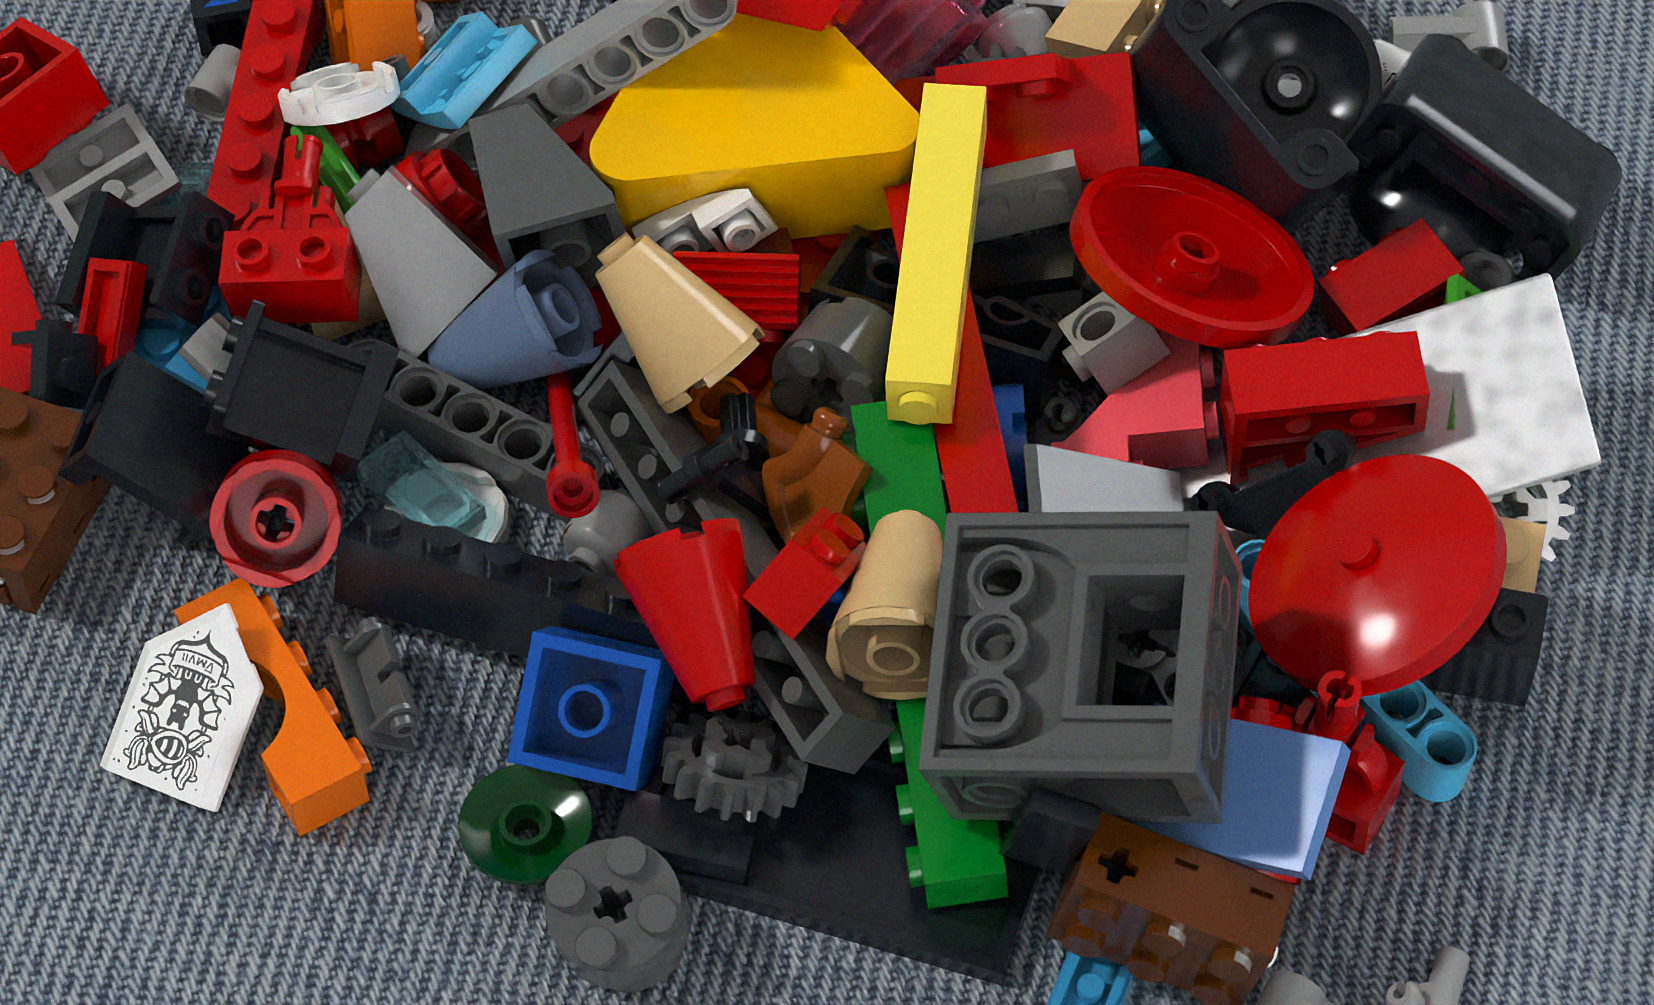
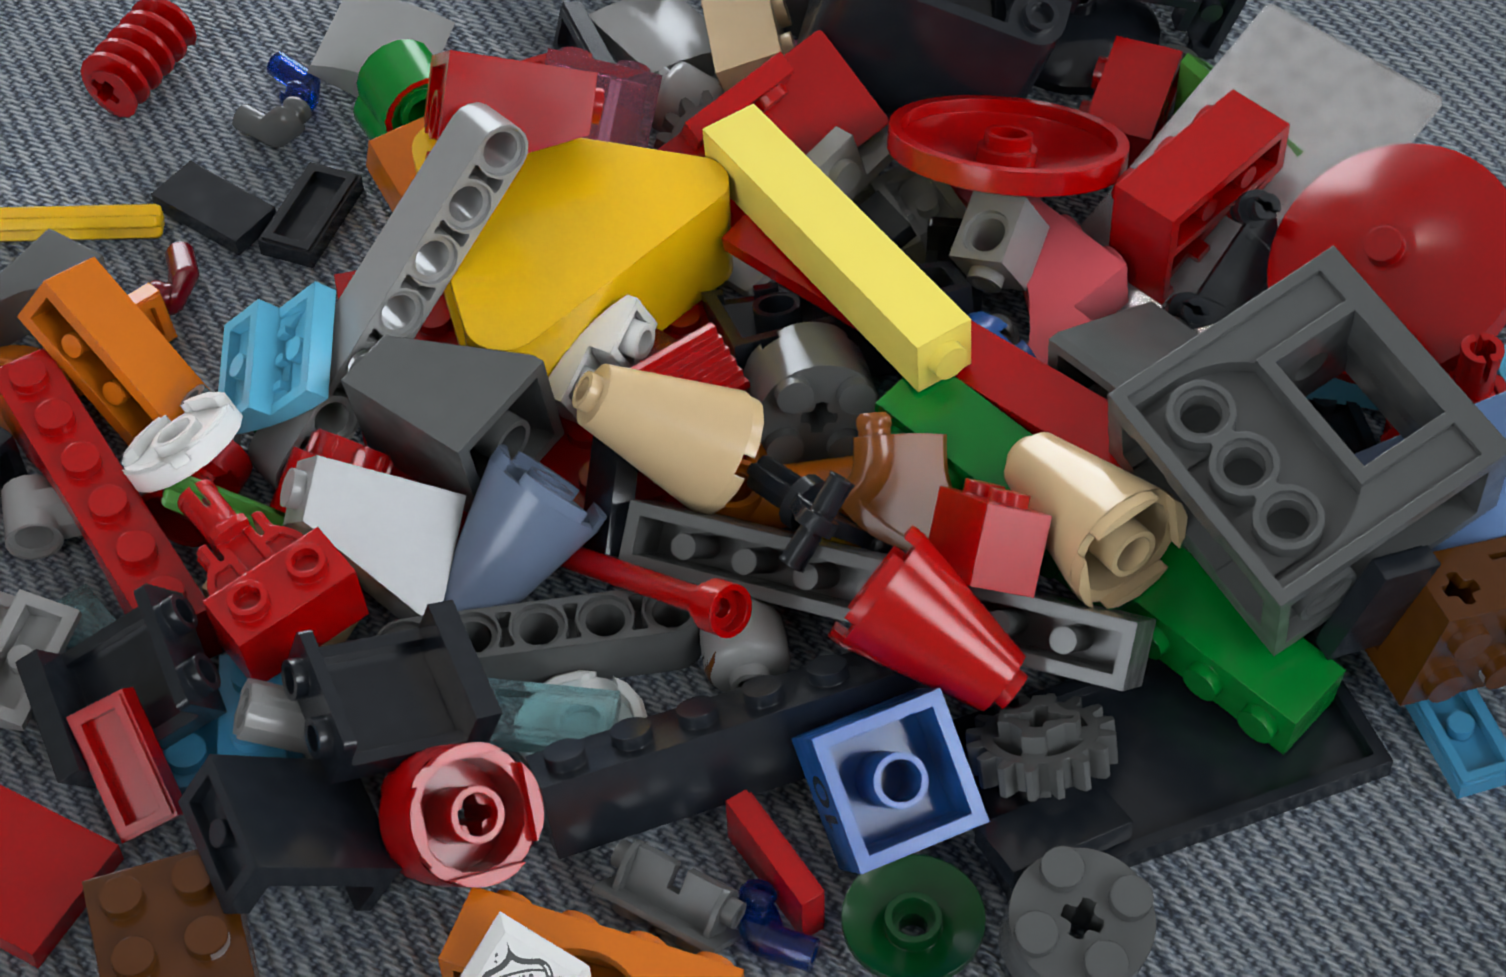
camera: 40 degrees left, 5 degrees down
(60, 363) = (119, 824): black bracket -> none
(426, 756) = (765, 933): none -> clear blue arm
(472, 714) = (776, 862): none -> red tile

